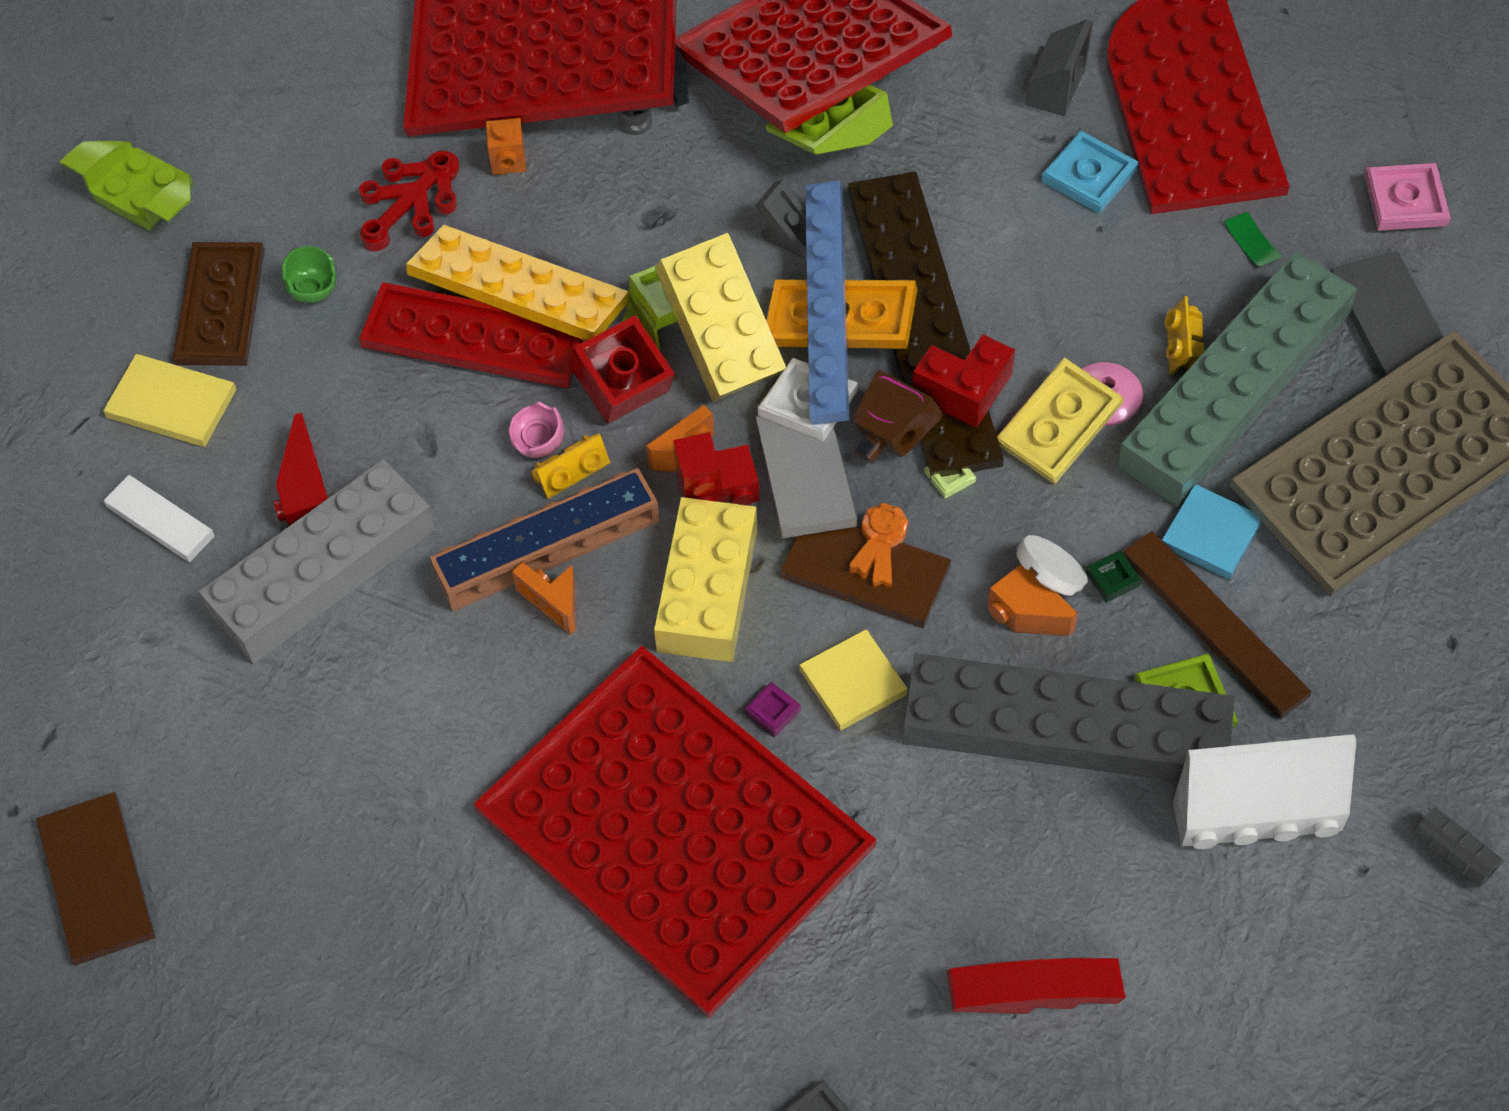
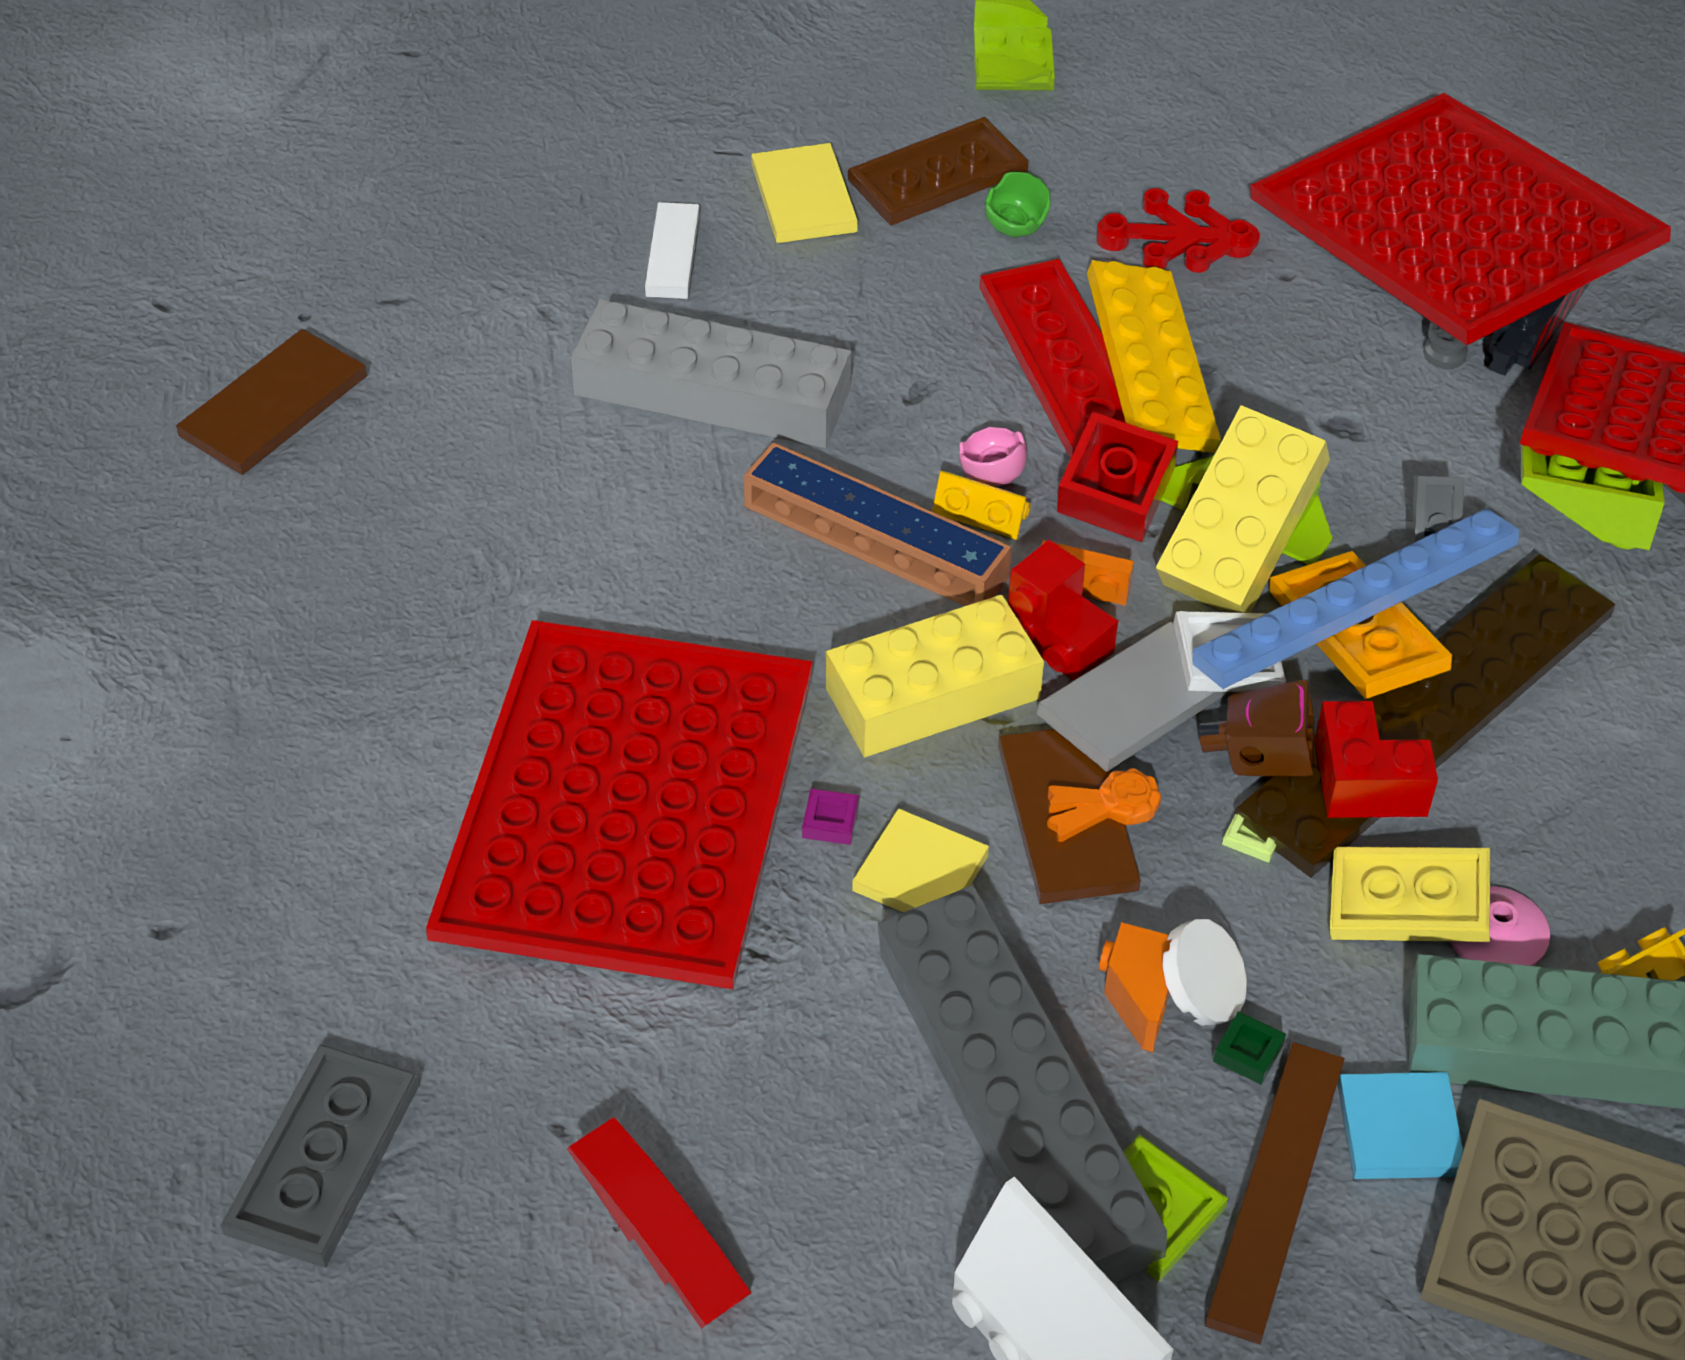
camera: 55 degrees right, 10 degrees down
(299, 476) = (801, 309): red slope -> none
(506, 146) = (1303, 265): orange brick -> none
(553, 599) = (818, 567): orange slope -> none

